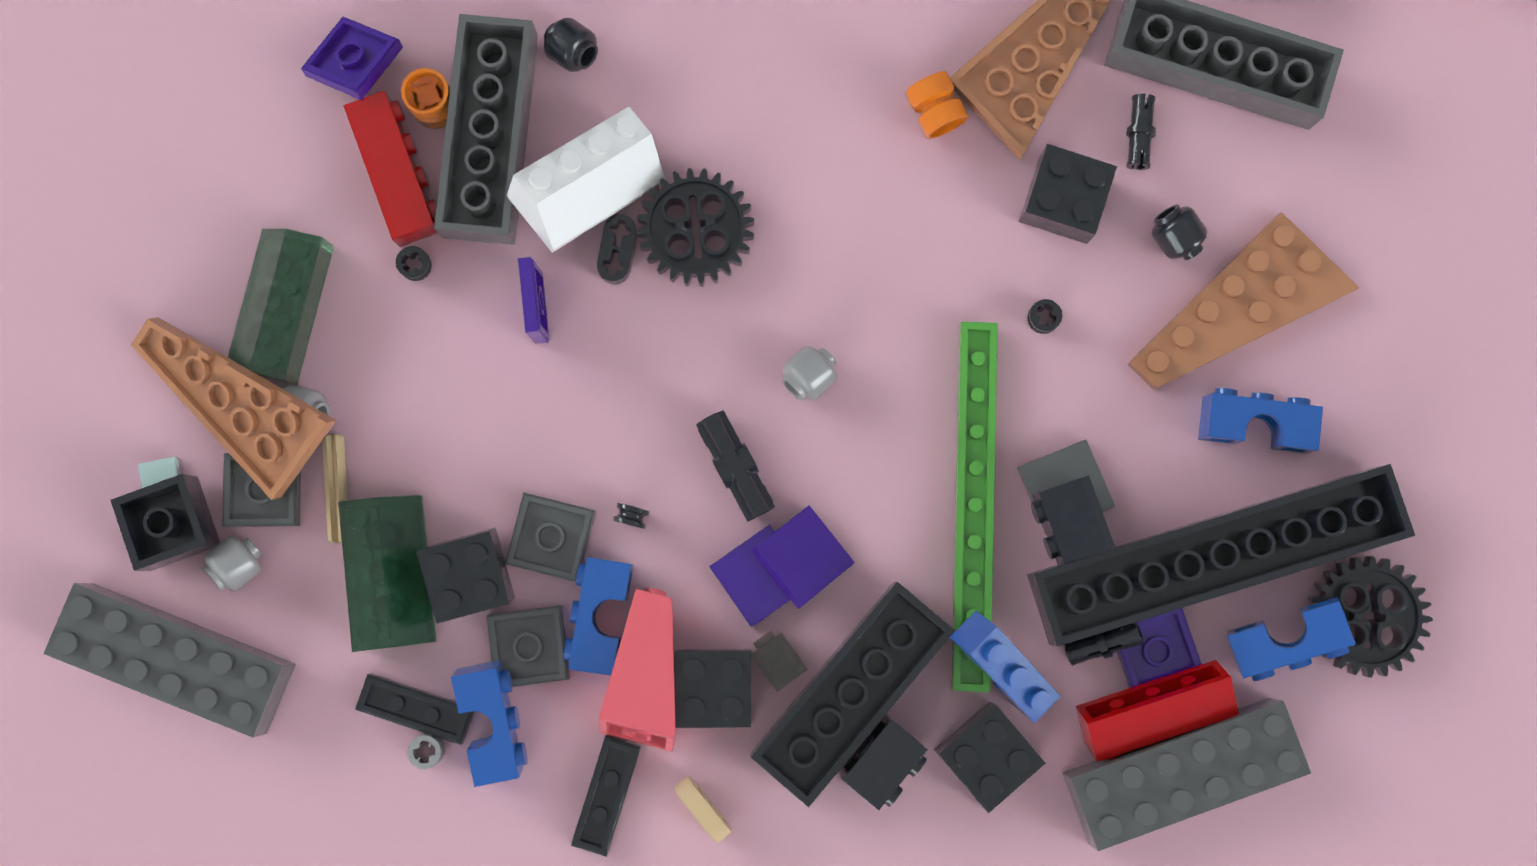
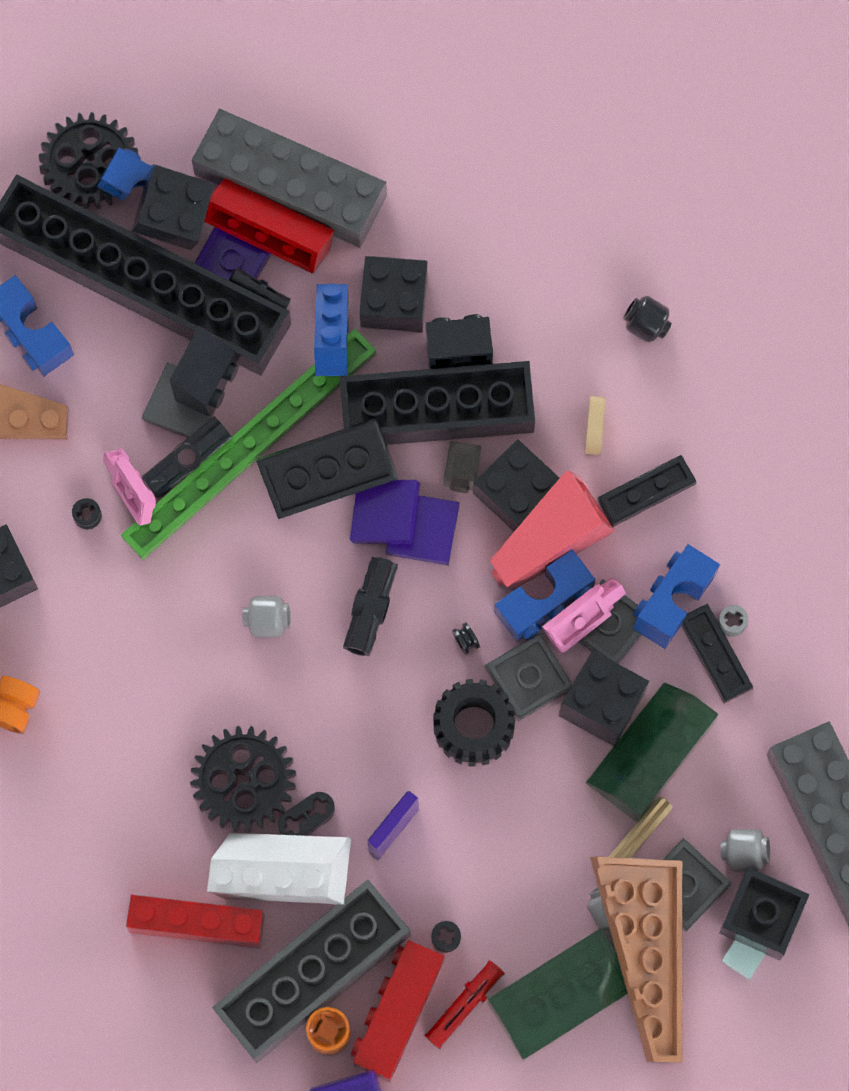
camera: 130 degrees left, 10 degrees down
(347, 236) = (490, 974): none -> red pin
(527, 432) = (479, 696): none -> black tyre
(548, 630) = (583, 615): none -> bright pink hinge
(570, 44) = (201, 979): black head -> none
(619, 80) = (195, 921): none -> red brick
(885, 543) = (327, 468): none -> black tile
(1012, 418) = (171, 471): none -> black piece
(1033, 369) = (130, 486): none -> bright pink hinge
(1252, 638) = (172, 207): none -> black brick

